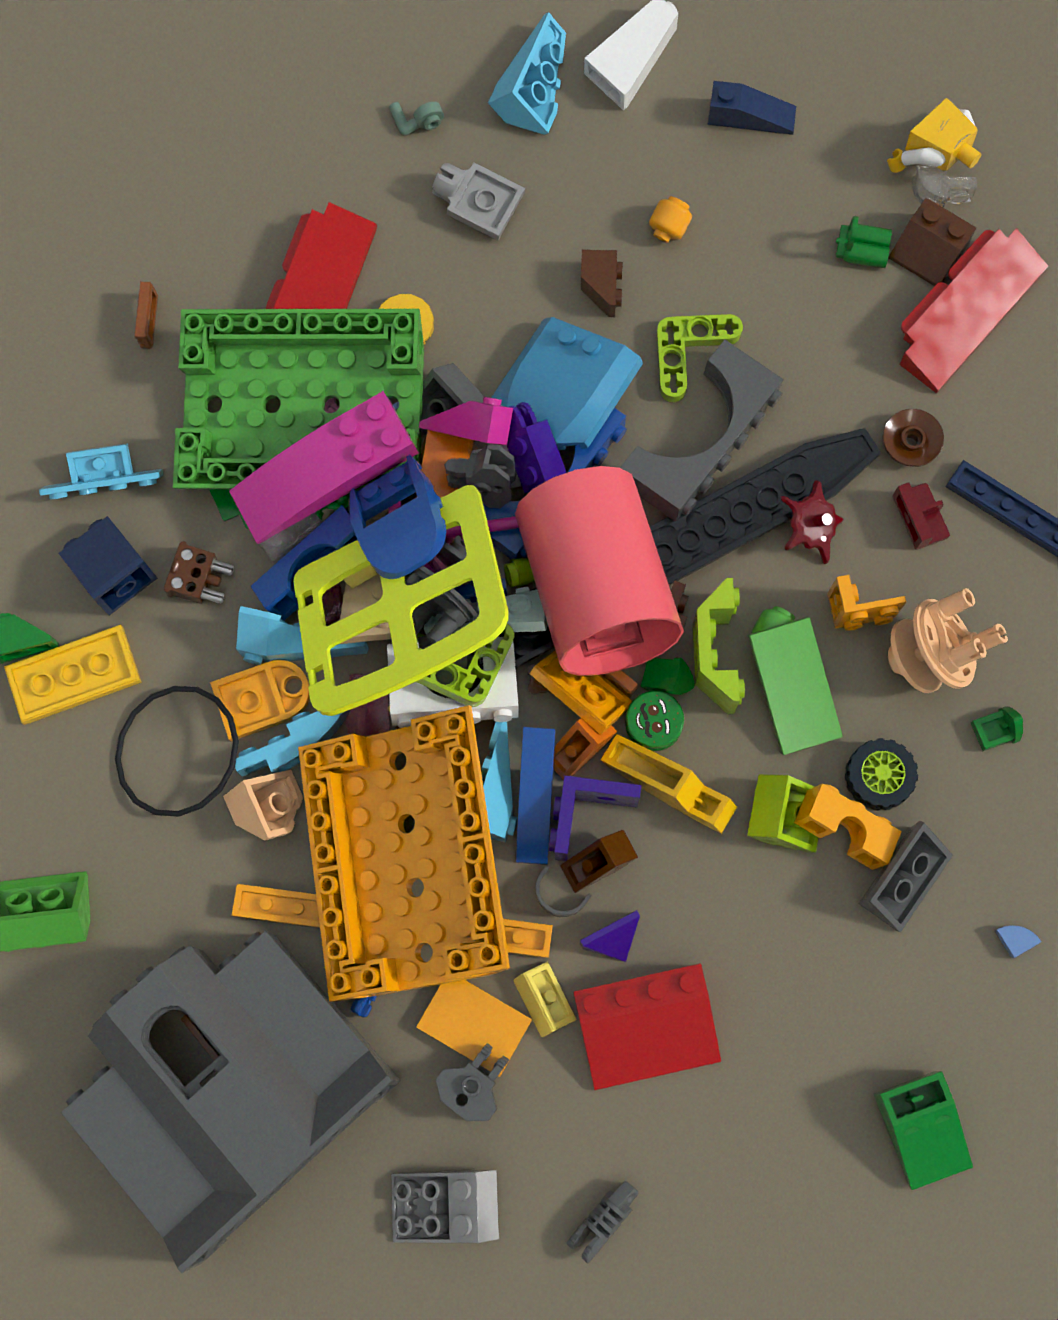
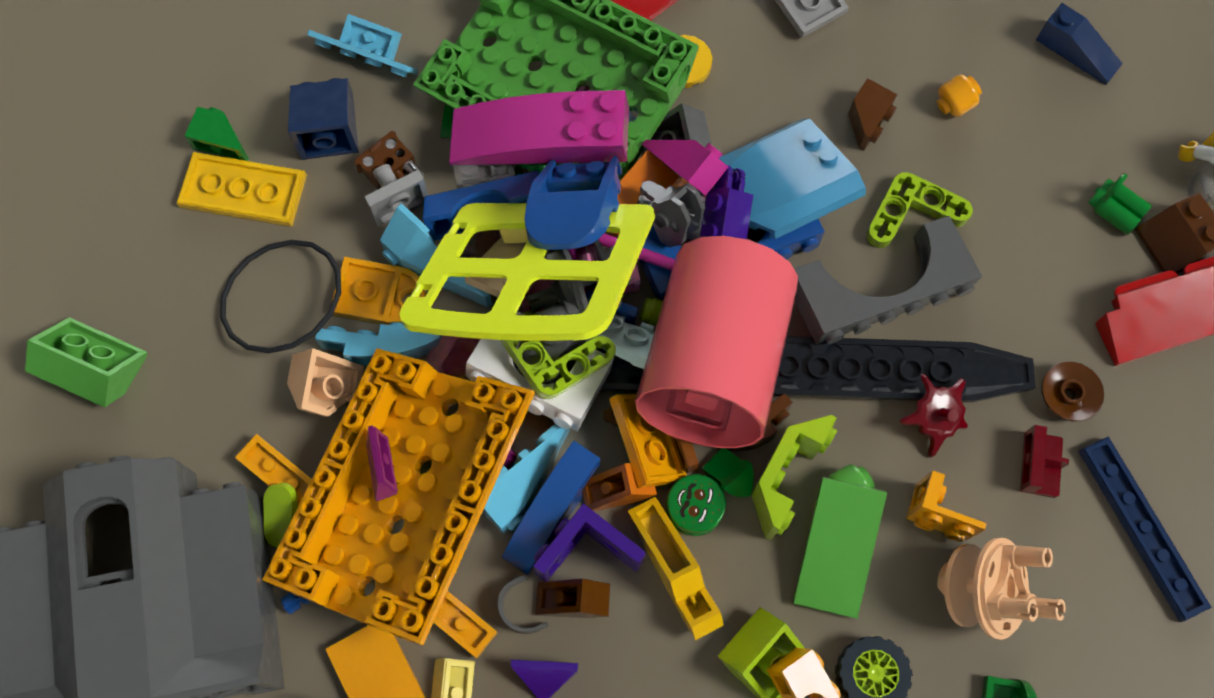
camera: 25 degrees right, 5 degrees down
(224, 600) = (407, 190): none -> light grey tile
(303, 939) = (279, 508): none -> lime tile
(369, 845) = (380, 464): none -> magenta slope

